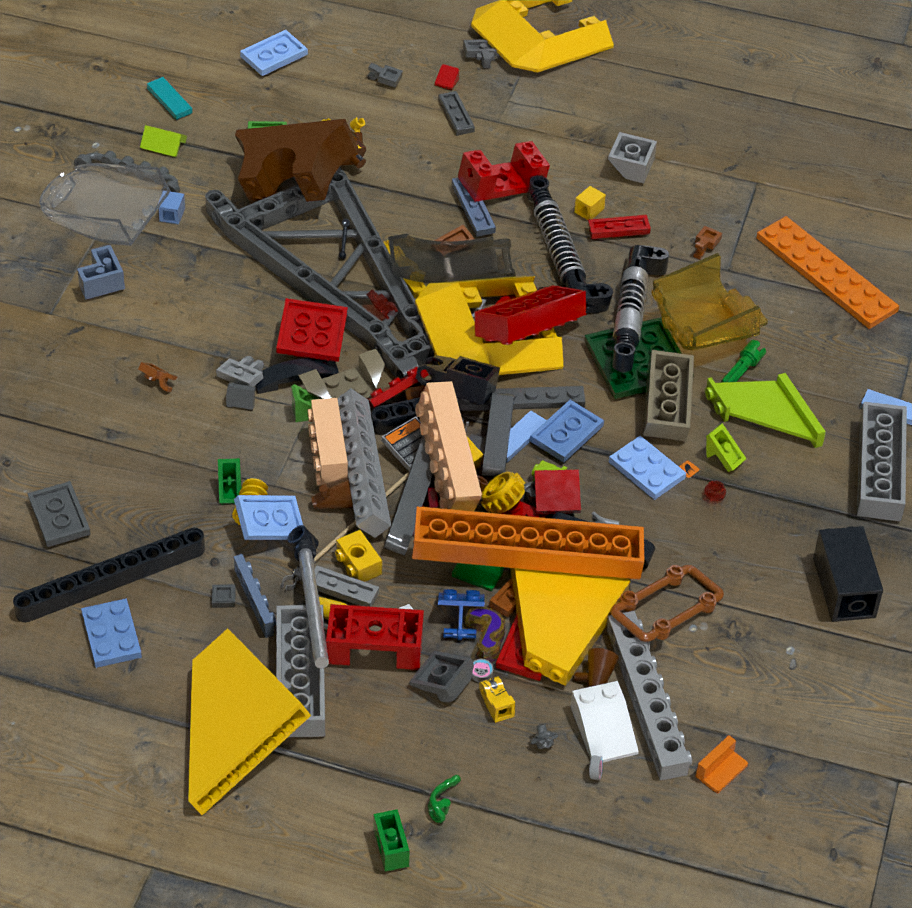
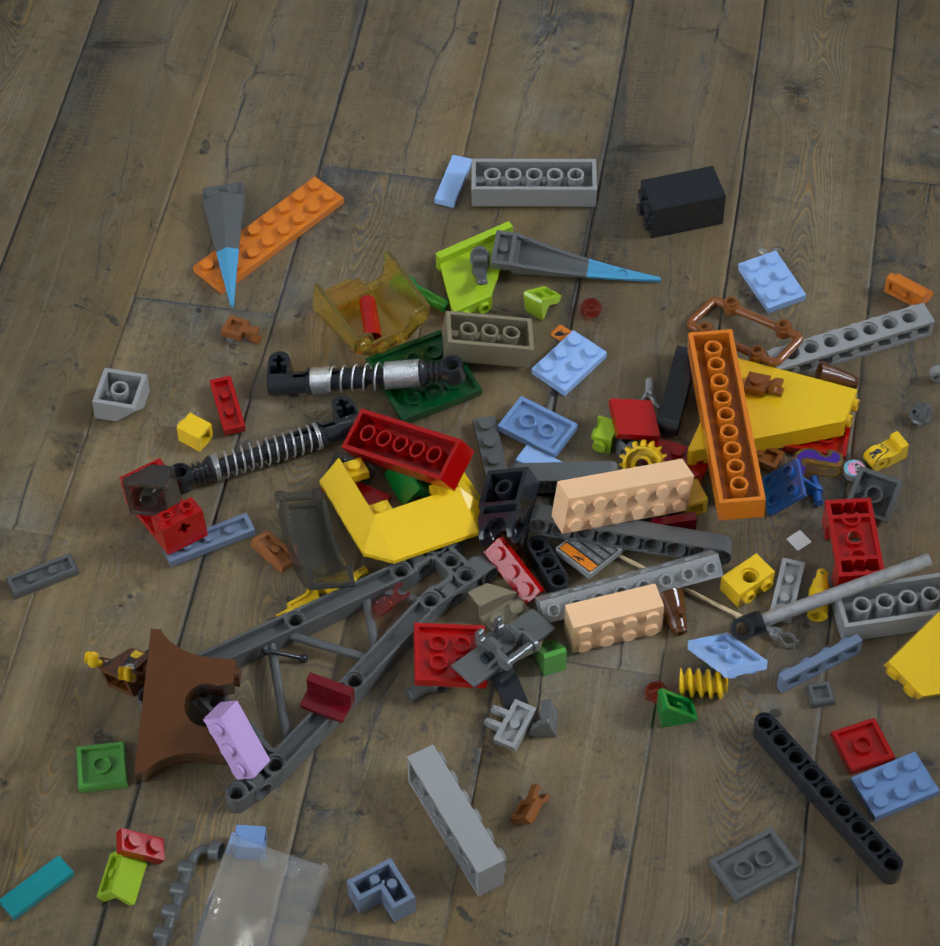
camera: 95 degrees left, 5 degrees up
(151, 318) = (456, 820): none -> light grey brick
(160, 617) = (862, 746): none -> red tile
(182, 145) = (140, 846): none -> red plate
(243, 178) = (236, 740): none -> lavender brick
(251, 471) = (651, 690): none -> clear red plate
(285, 250) = (327, 698): none -> dark red panel
(292, 342) = (494, 646): none -> dark grey piece
(511, 156) = (152, 490): none -> clear smoke slope
(582, 589) = (760, 384): none -> dark orange plate
(604, 721) = (888, 372): white slope -> none
(698, 318) = (370, 316): none -> red piece
(743, 647) = (771, 282): none -> light blue plate
(772, 406) = (480, 262): none -> dark grey piece
(779, 446) = (531, 257): none -> dark grey plate
(853, 239) = (225, 215): none -> dark grey plate

